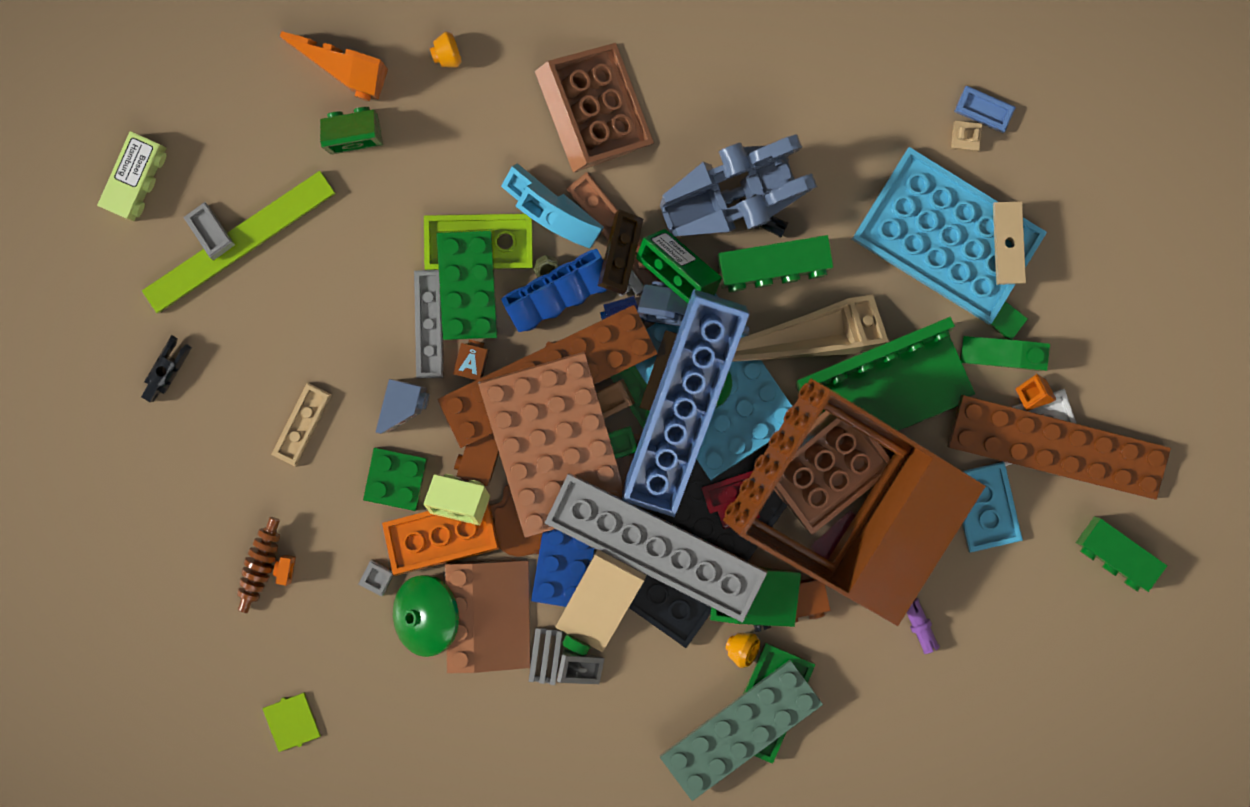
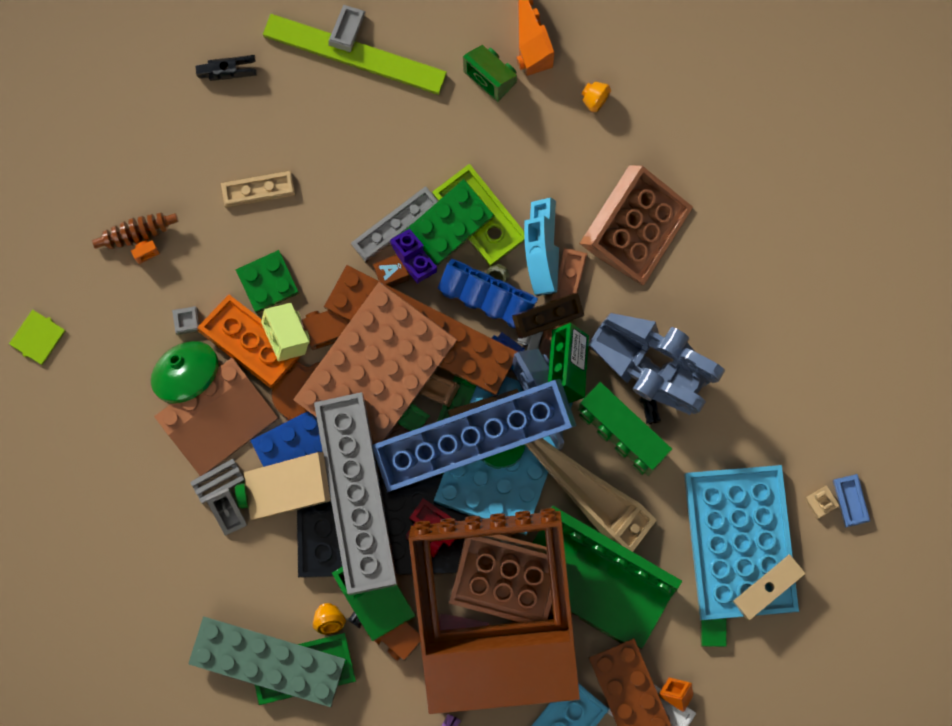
camera: 55 degrees right, 10 degrees down
(401, 404) = (322, 244): sand blue slope -> none
(473, 332) = (411, 254): none -> dark purple slope
(1005, 353) = (688, 648): green slope -> none

